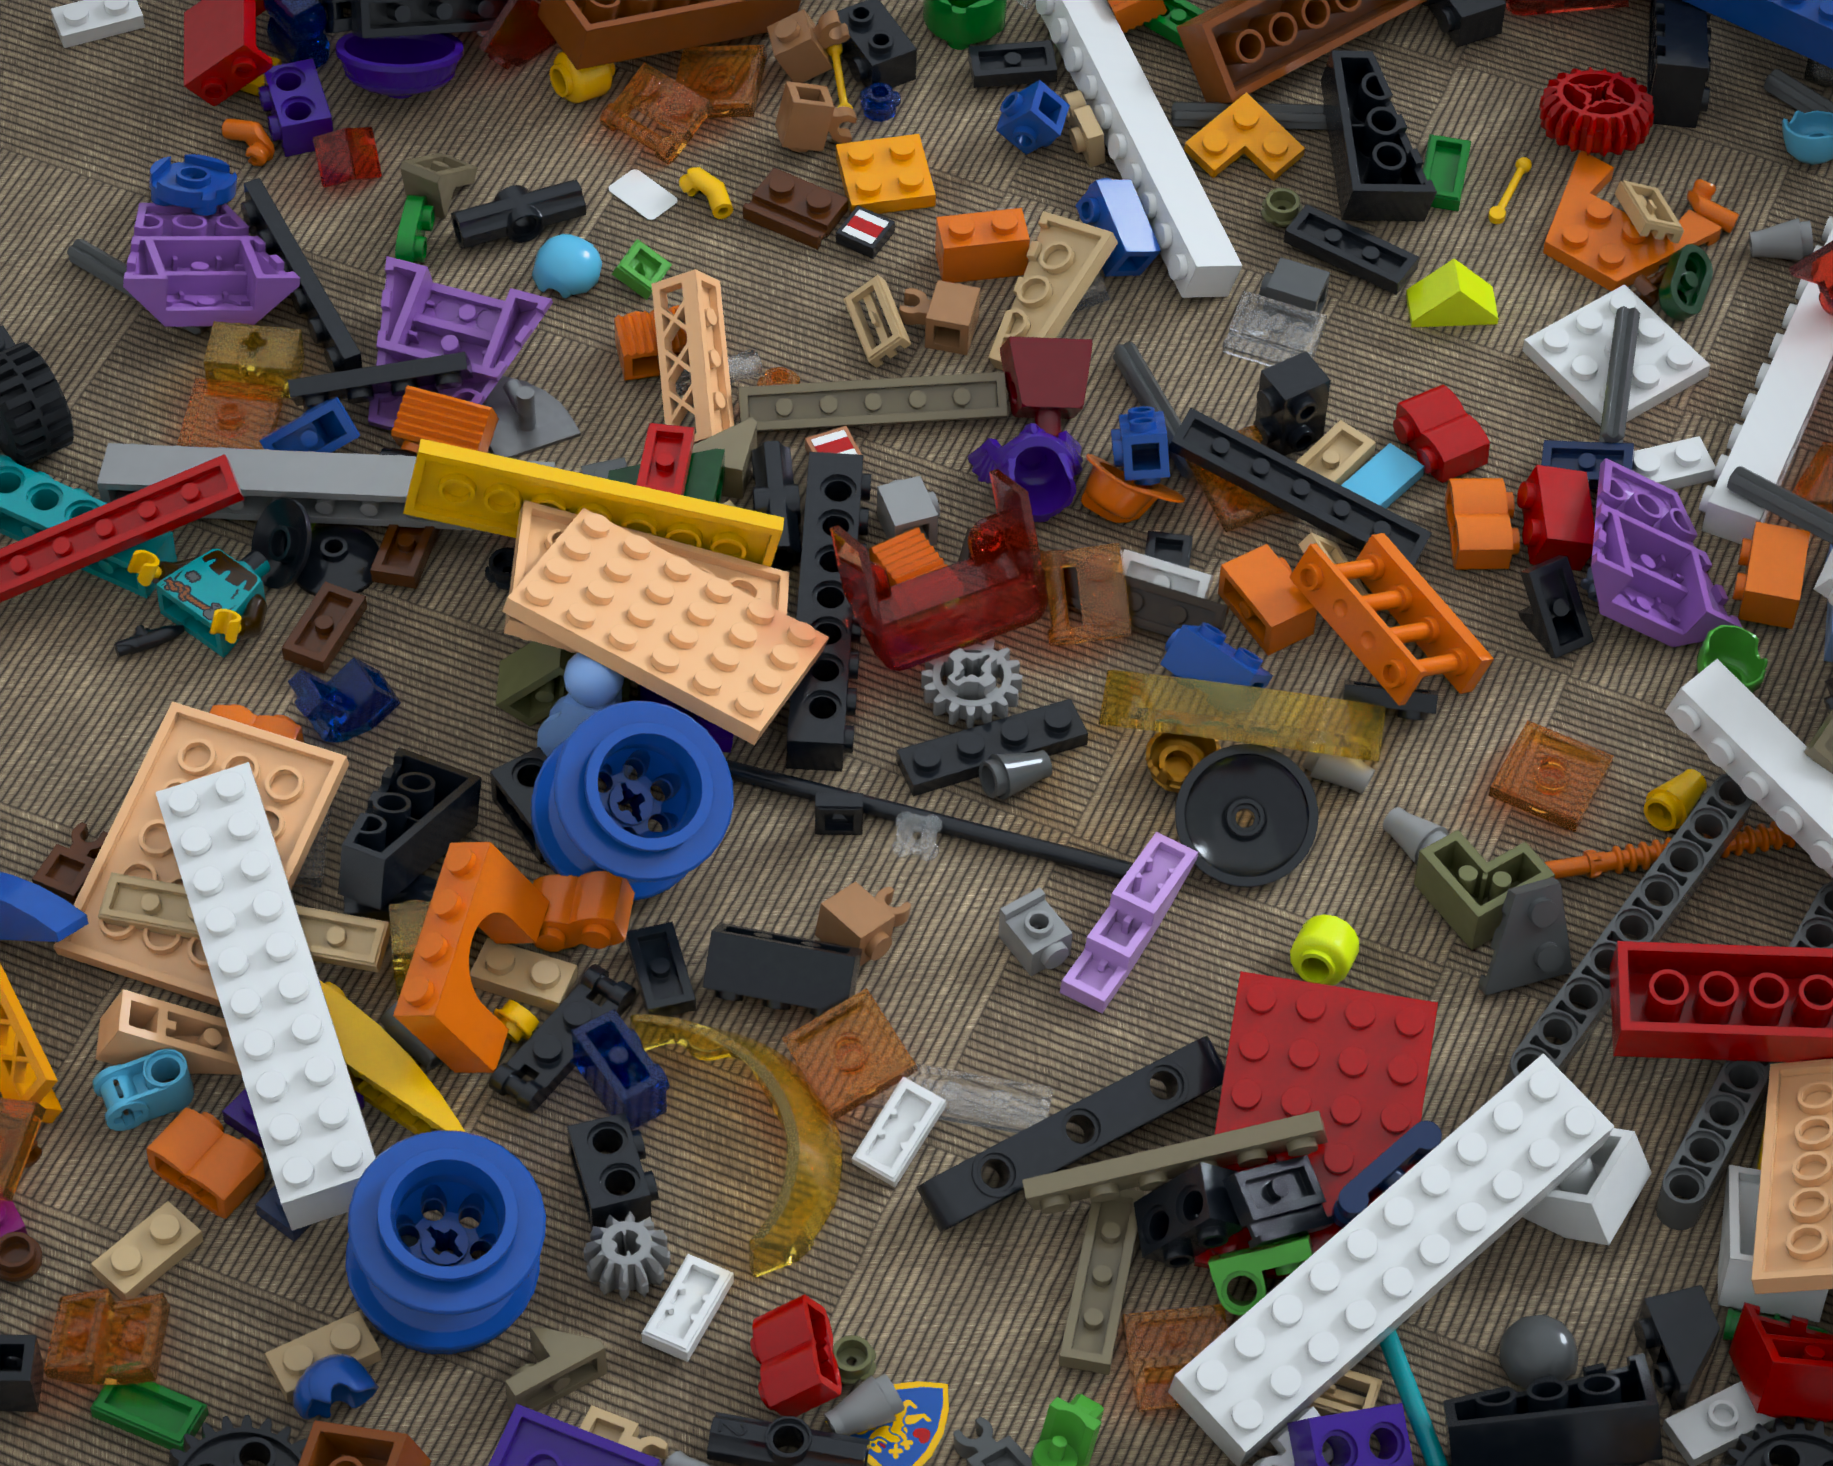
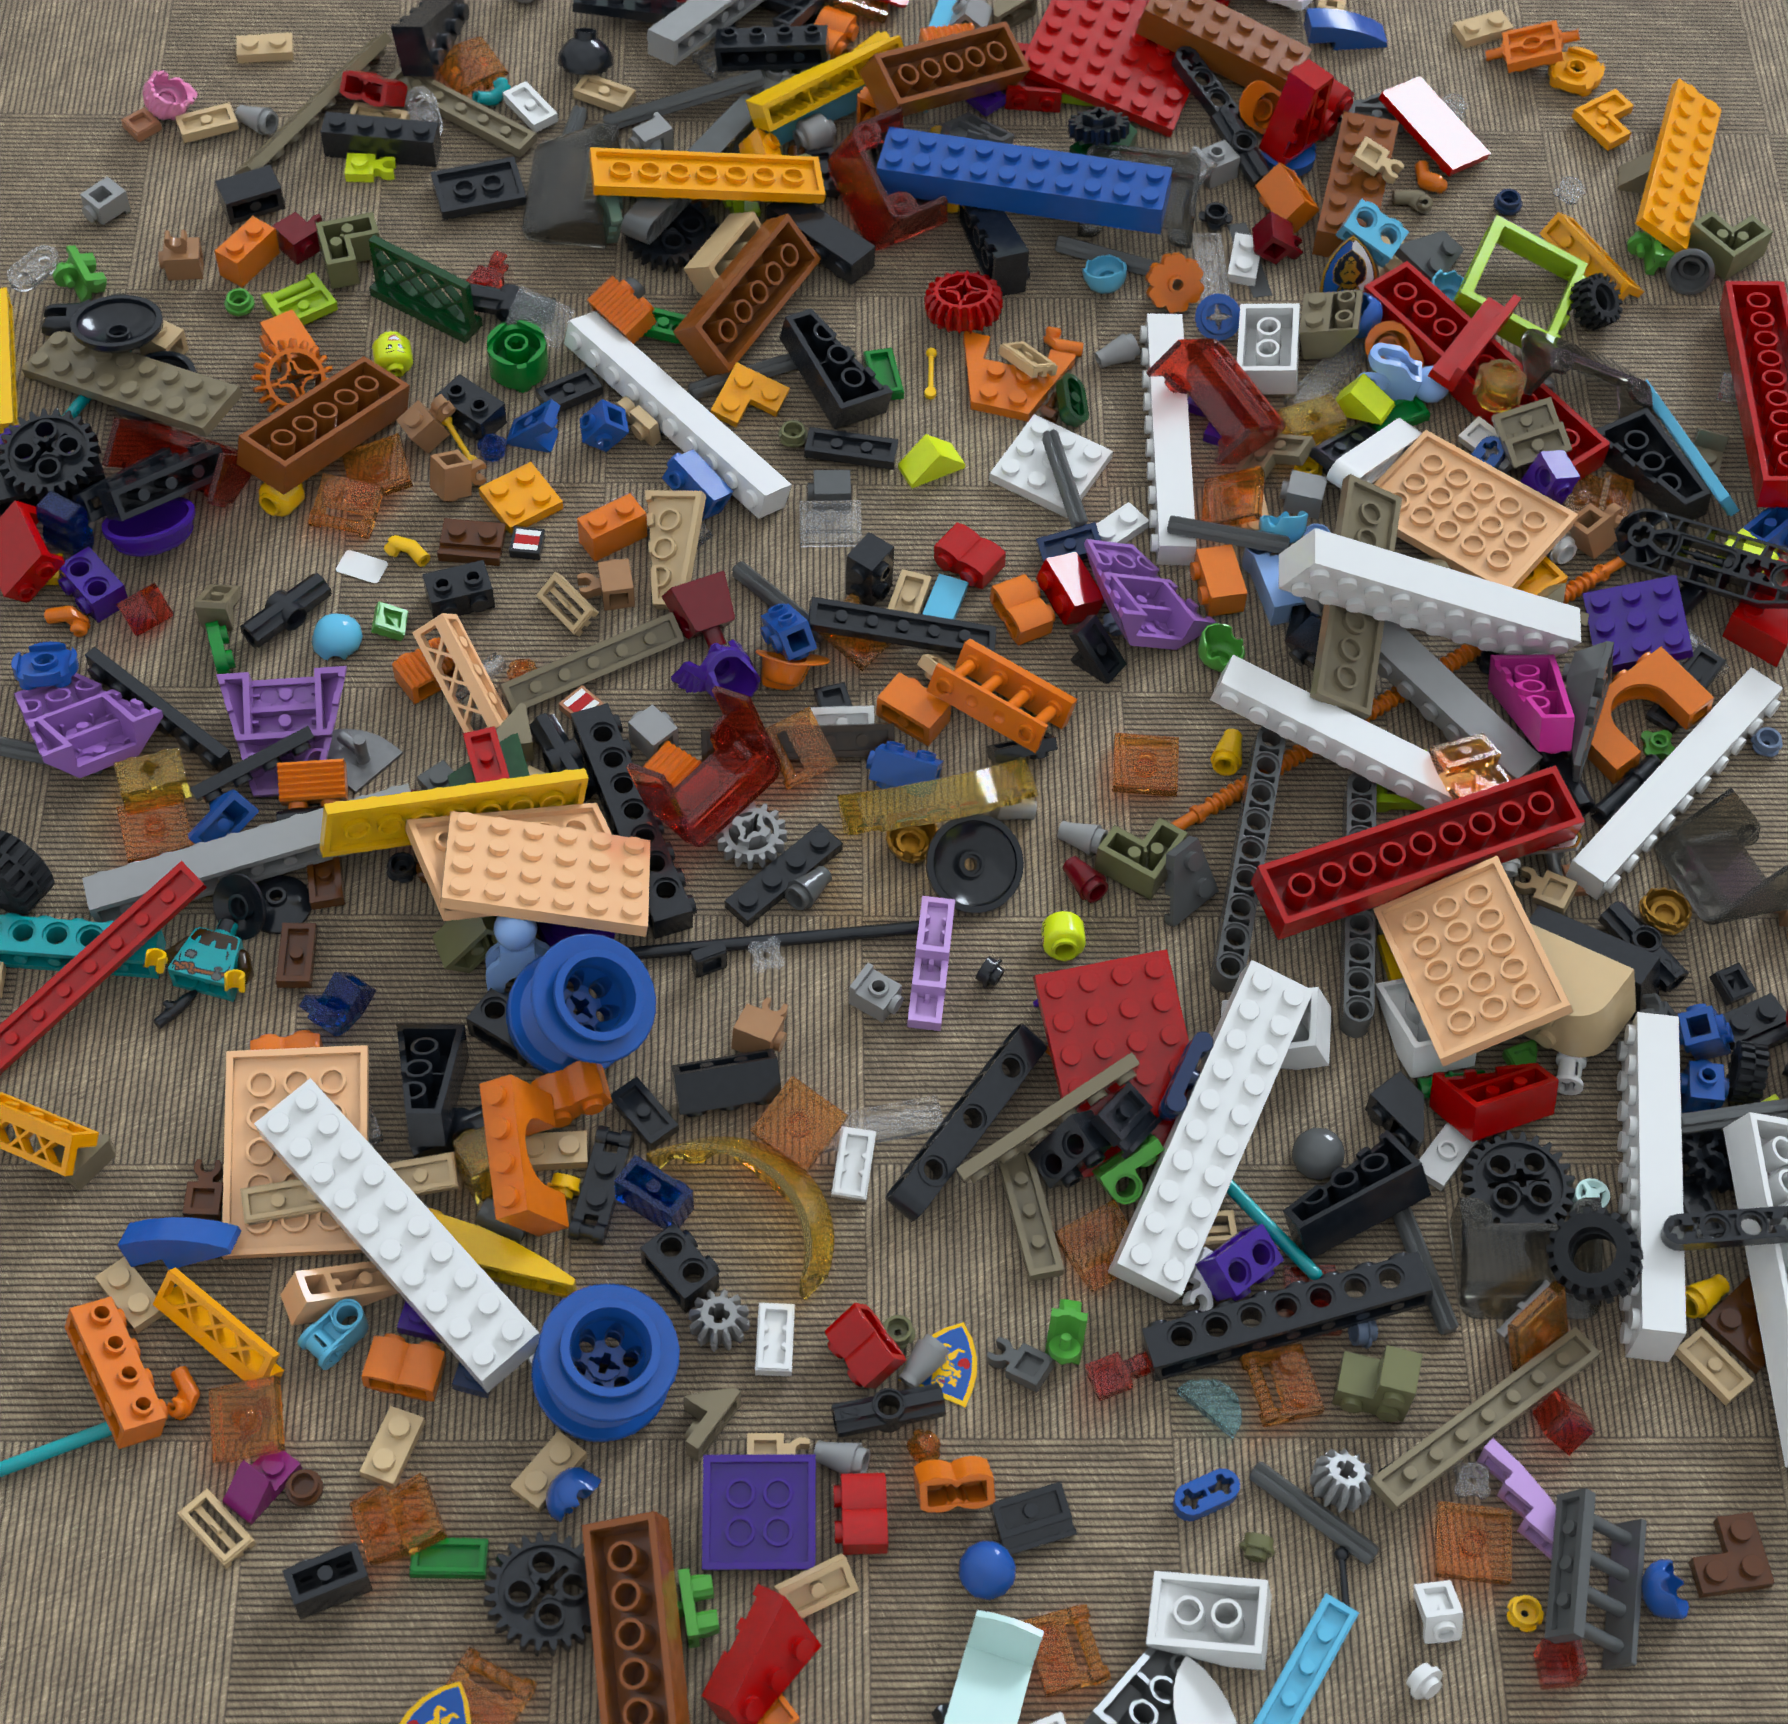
camera: 25 degrees left, 5 degrees up
(744, 264) = (459, 589): none -> black brick
(946, 96) = (536, 428): none -> blue slope
(1203, 961) = (990, 972): none -> black plate
(1392, 892) = (1086, 880): none -> dark red cone

